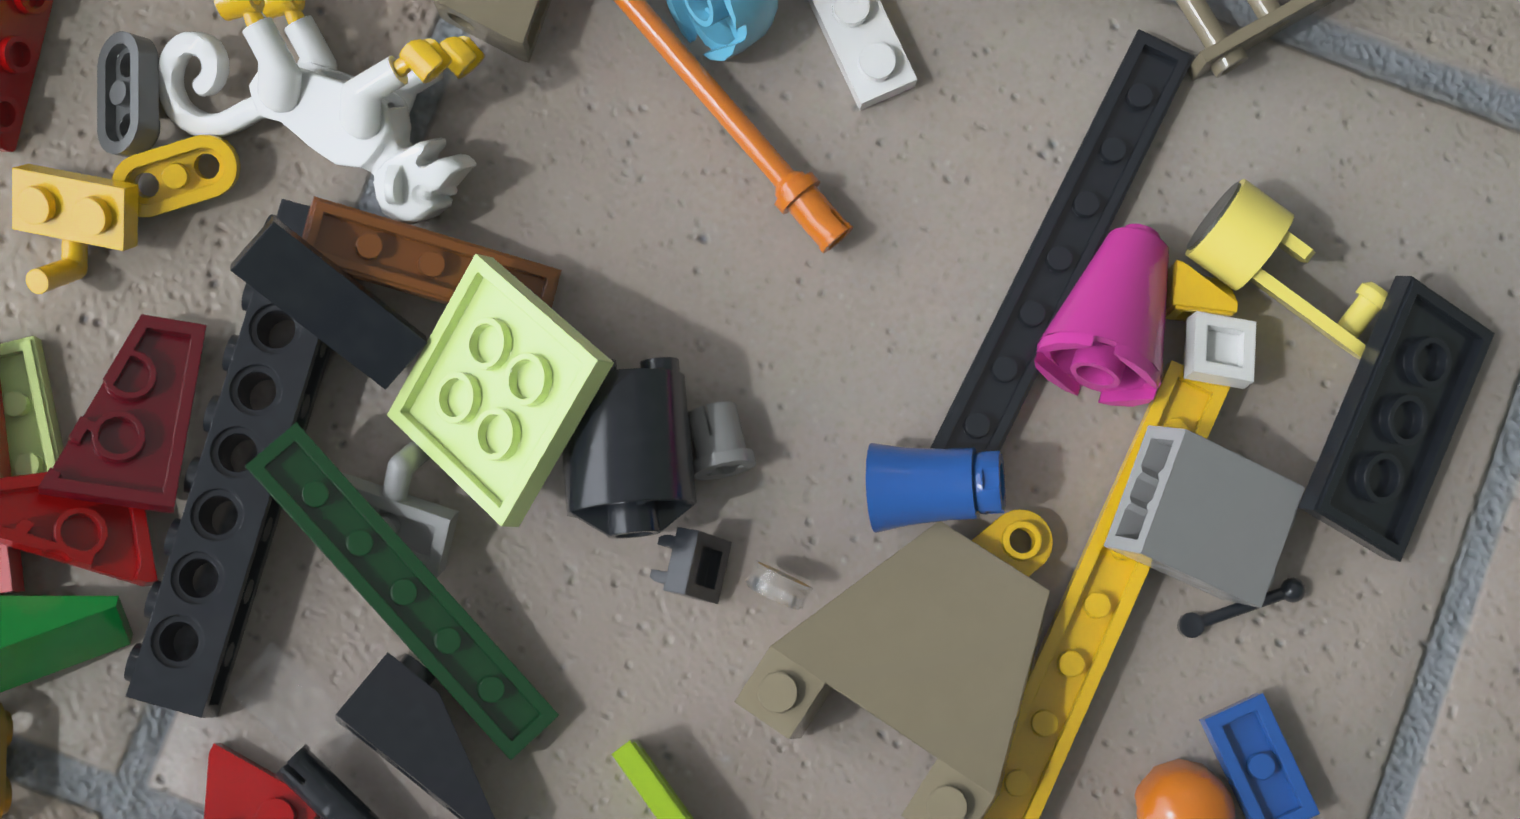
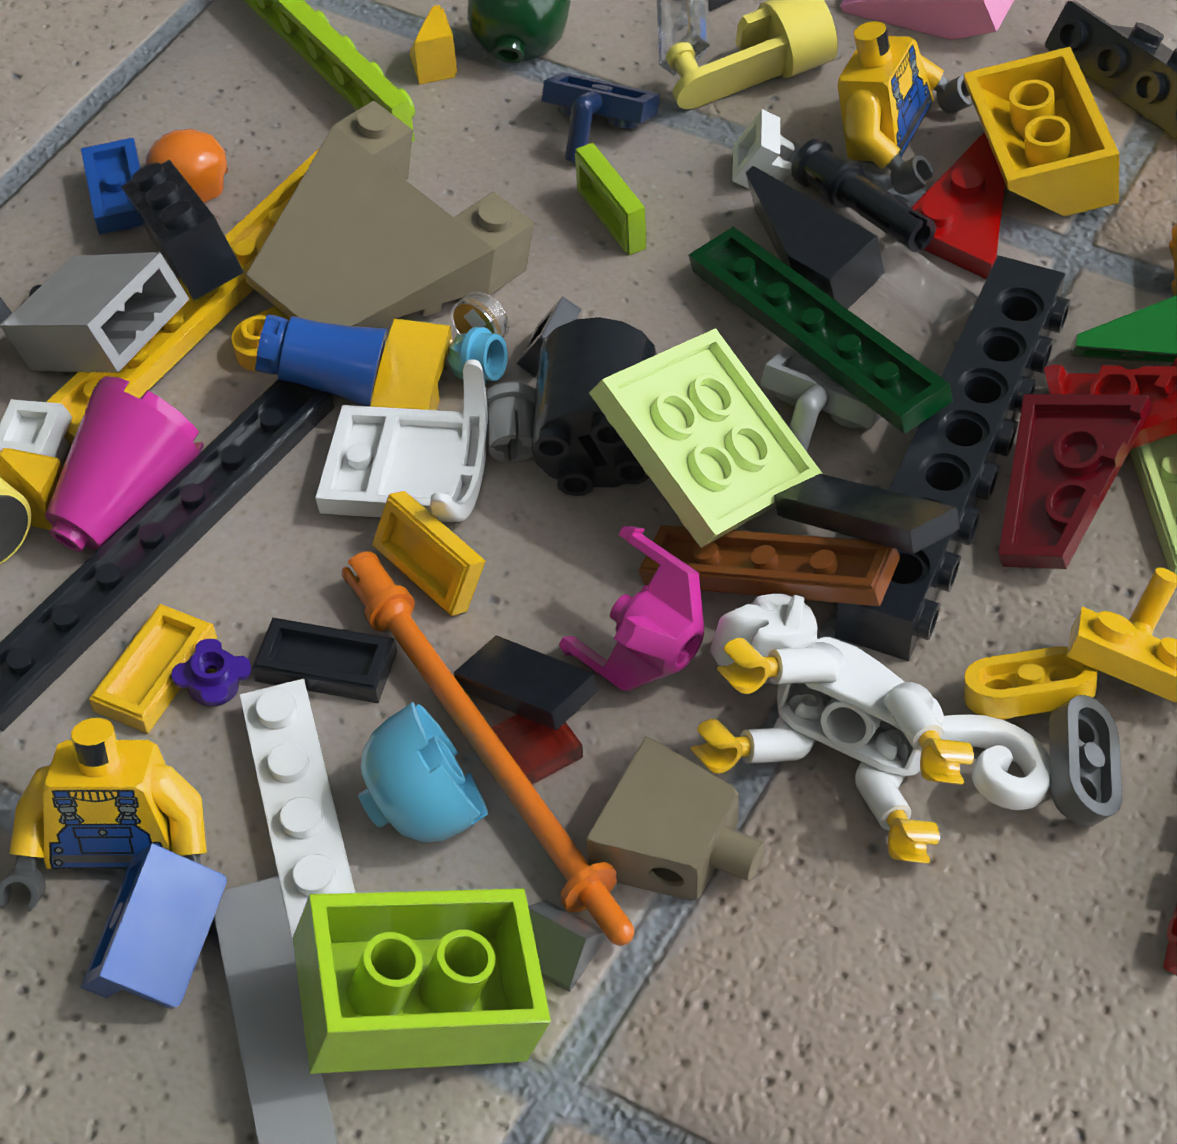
camera: 165 degrees left, 30 degrees down
(532, 166) = (655, 628): none -> dark pink piece
(631, 70) = (538, 748): none -> clear red tile
(648, 117) = (526, 682): none -> black tile
(771, 256) = (428, 553): none -> yellow tile
(773, 532) = (481, 346): none -> medium azure plate
(816, 371) = (417, 451): none -> white piece
(837, 495) = (412, 365): none -> yellow slope
(850, 139) = (326, 658): none -> black tile
(956, 118) = (216, 687): none -> dark purple plate
(1011, 112) = (141, 679): none -> yellow tile
(1145, 651) = (182, 228): none -> black brick

